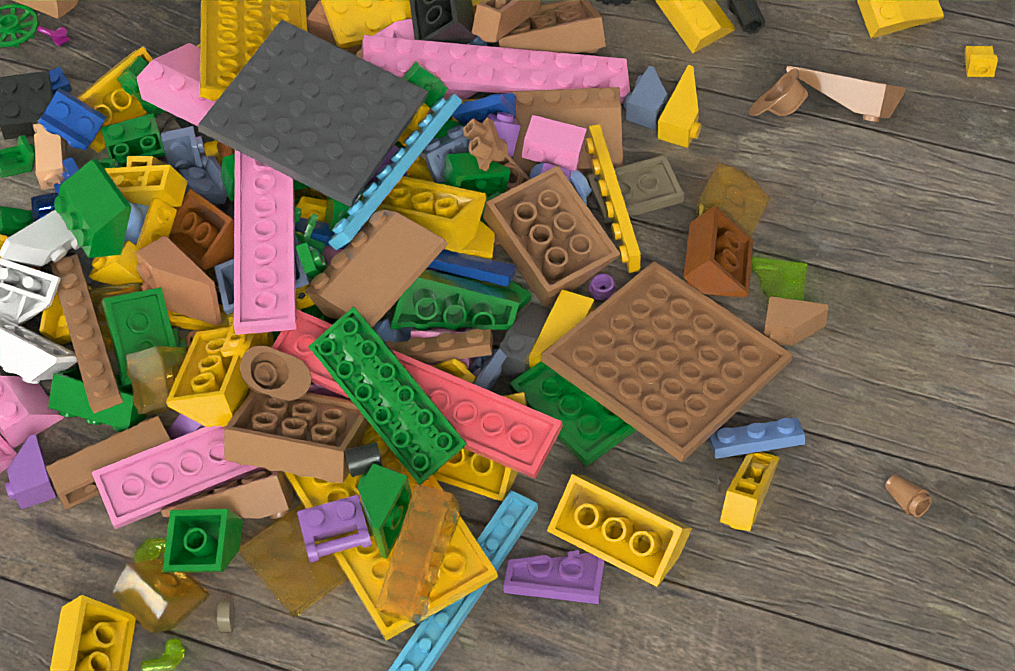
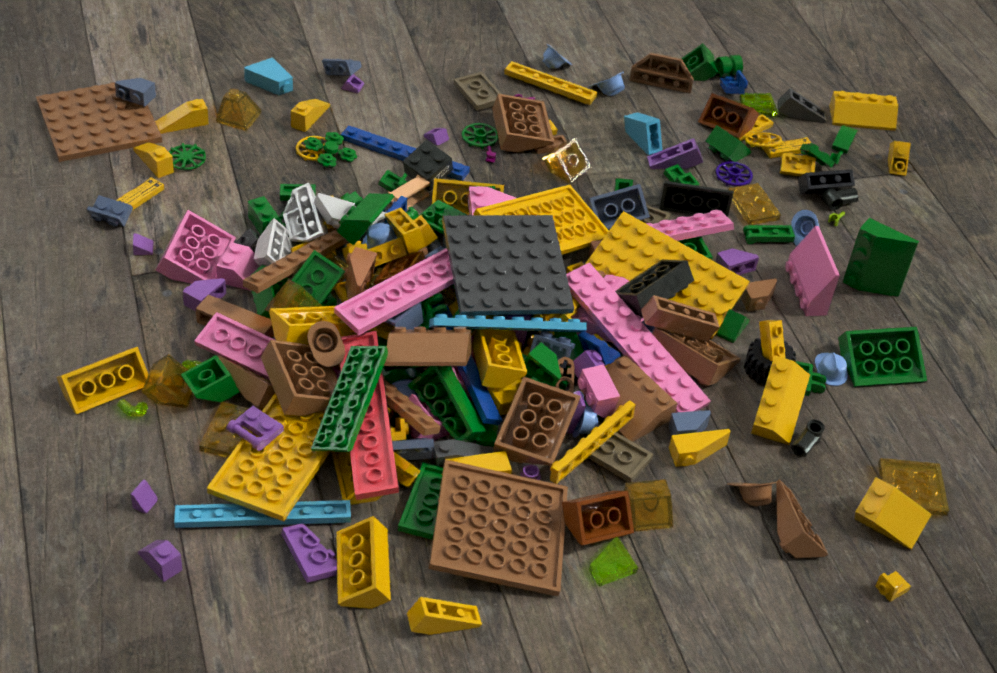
camera: 45 degrees right, 10 degrees down
(72, 120) = (429, 184): blue bracket -> none
(225, 616) = (176, 418): dark tan tile -> none
(311, 260) = (411, 318): green plate -> none
(362, 457) = (299, 411): pearl dark grey piece -> none
(385, 503) = (275, 437): green slope -> none
(419, 553) = (263, 469): clear yellow wedge -> none
(428, 81) = (583, 307): green bracket -> none
(485, 142) = (562, 356): medium nougat hips -> none
(757, 437) = (484, 604): medium blue plate -> none
(793, 320) = (585, 579): medium nougat slope -> none

